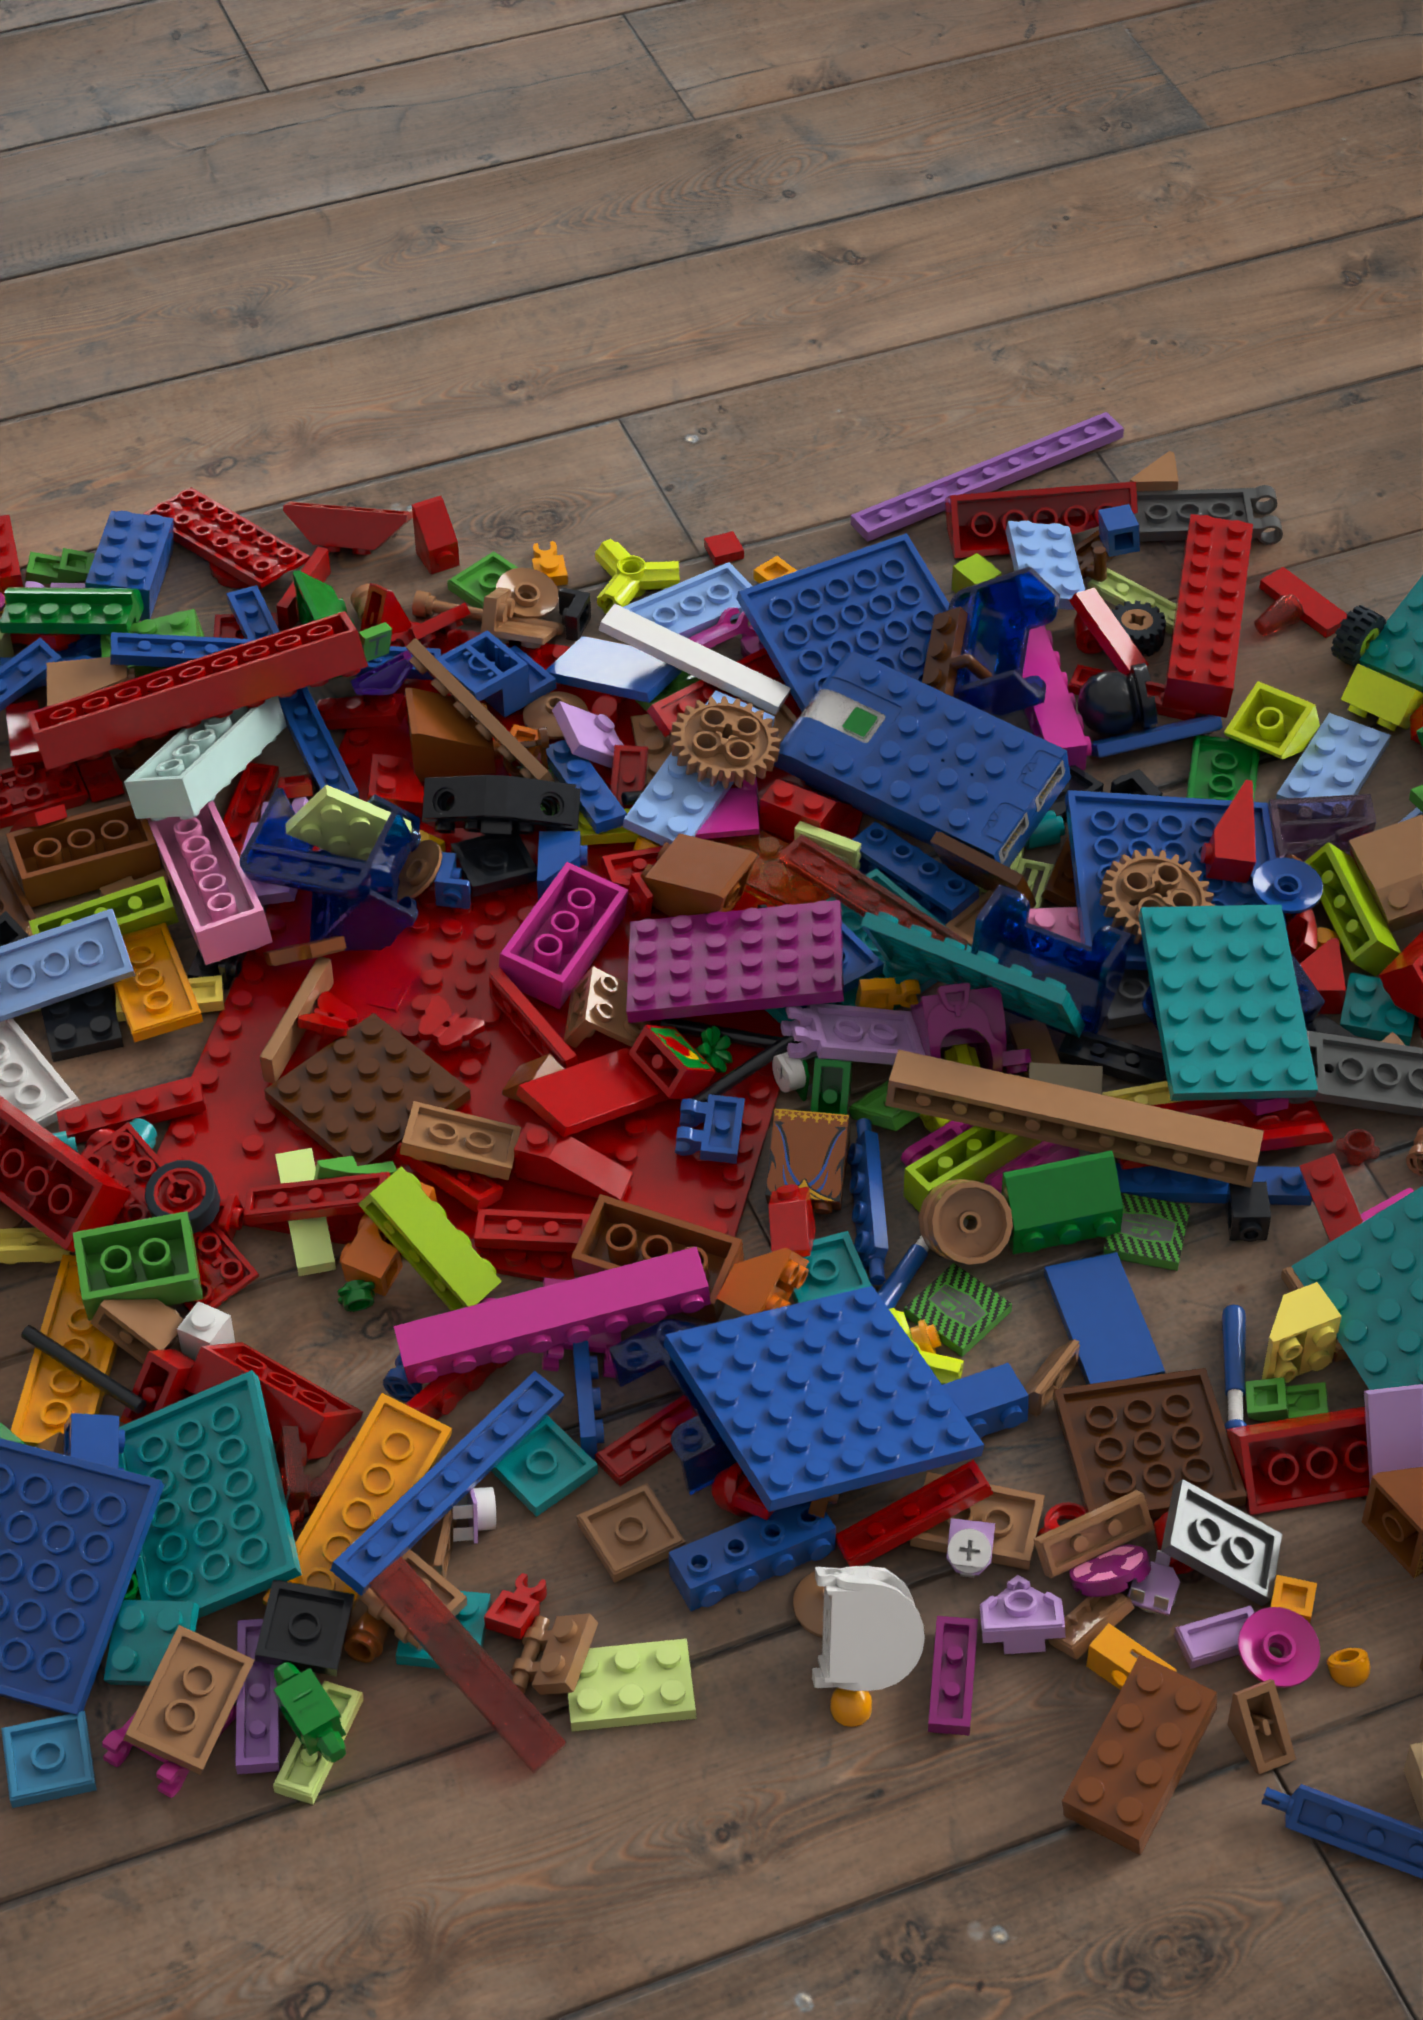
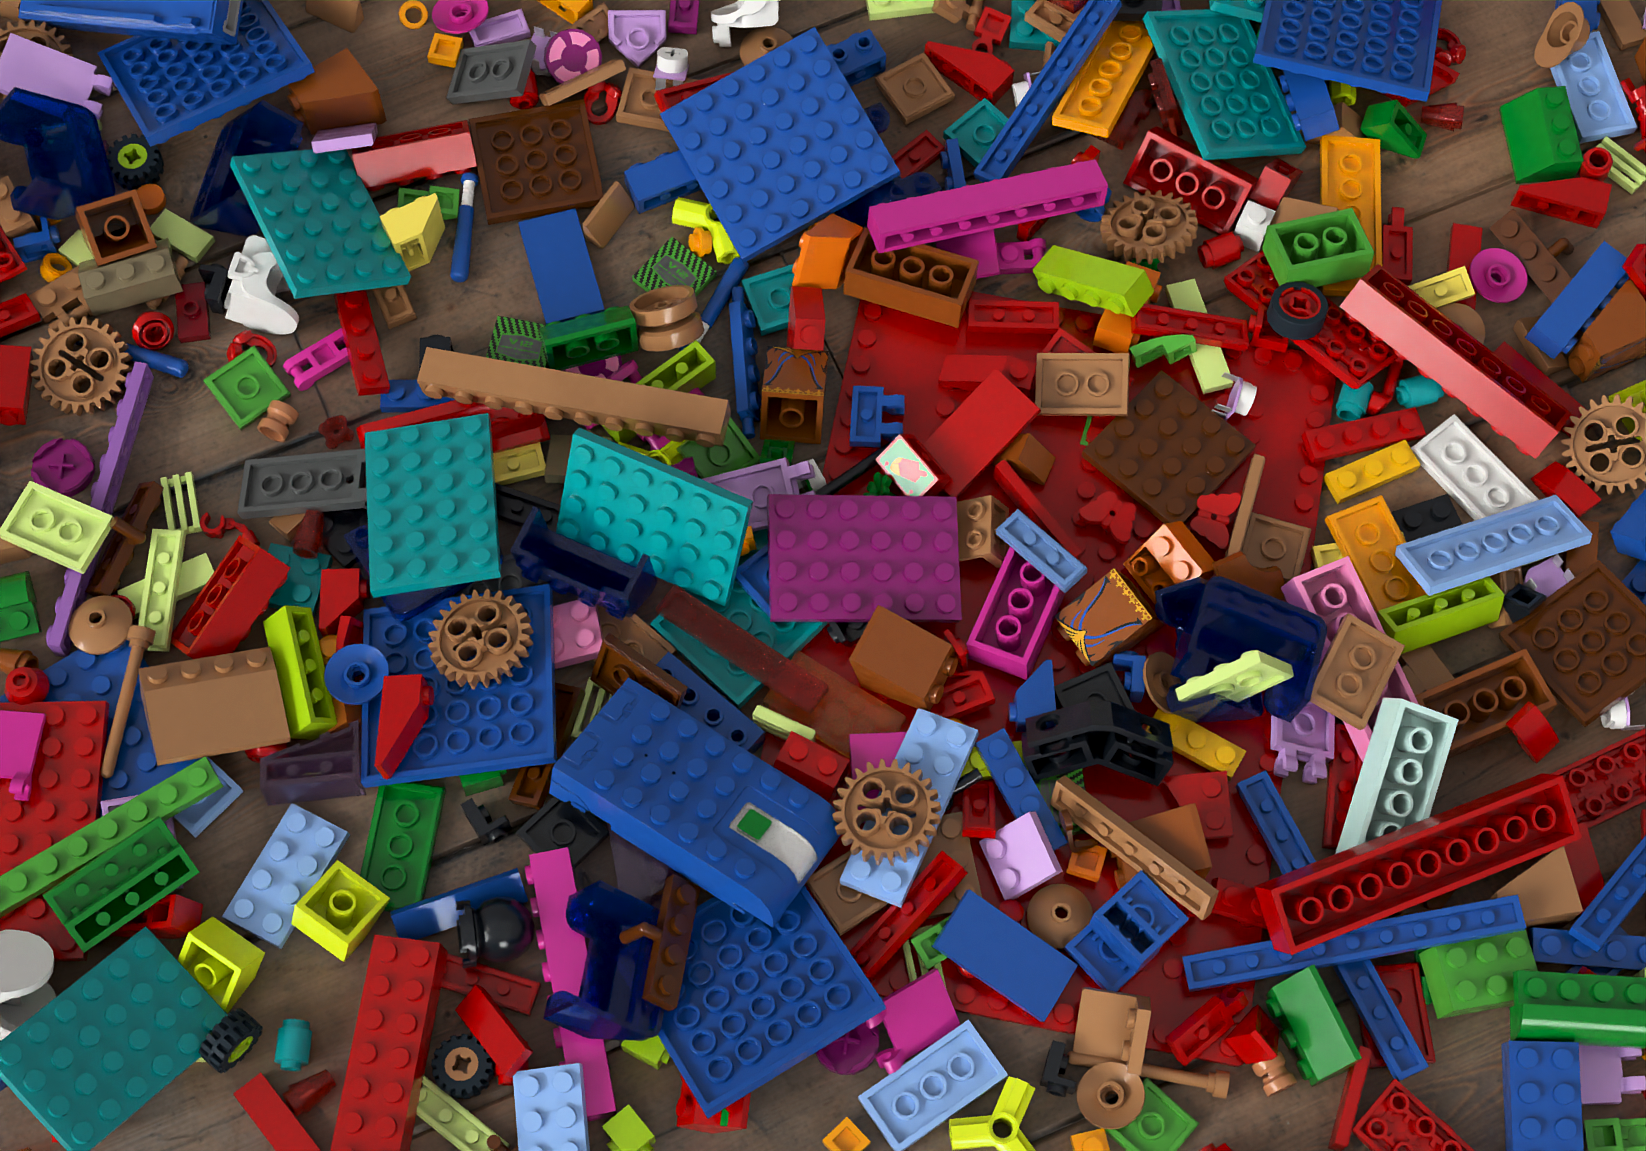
camera: 175 degrees right, 20 degrees up
(25, 1308) = (1397, 246): none -> red plate
(83, 1369) = (1339, 189): black bar -> none
(131, 1078) = (1371, 471): none -> yellow plate
(214, 837) = (1355, 671): none -> medium nougat plate
(255, 1314) = (1220, 250): none -> red brick
(261, 996) = (1276, 543): none -> medium nougat tile
(275, 1130) = (1240, 398): none -> piece
(296, 785) = (1301, 796): red tile -> none
(315, 1311) = (1148, 227): none -> medium nougat gear
(376, 641) = (1256, 958): bright green tile -> none
(384, 678) = (1236, 918): dark purple slope -> none
(386, 974) = (1169, 559): none -> orange slope
(462, 925) = (1107, 619): none -> dark orange slope
(536, 957) = (1041, 551): none -> medium blue tile
(548, 1549) = (972, 70): none -> red slope
(694, 659) = (926, 935): white tile -> none
(1299, 644) = (293, 1044): none -> teal brick
(1366, 1017) = (309, 535): none -> clear red cone

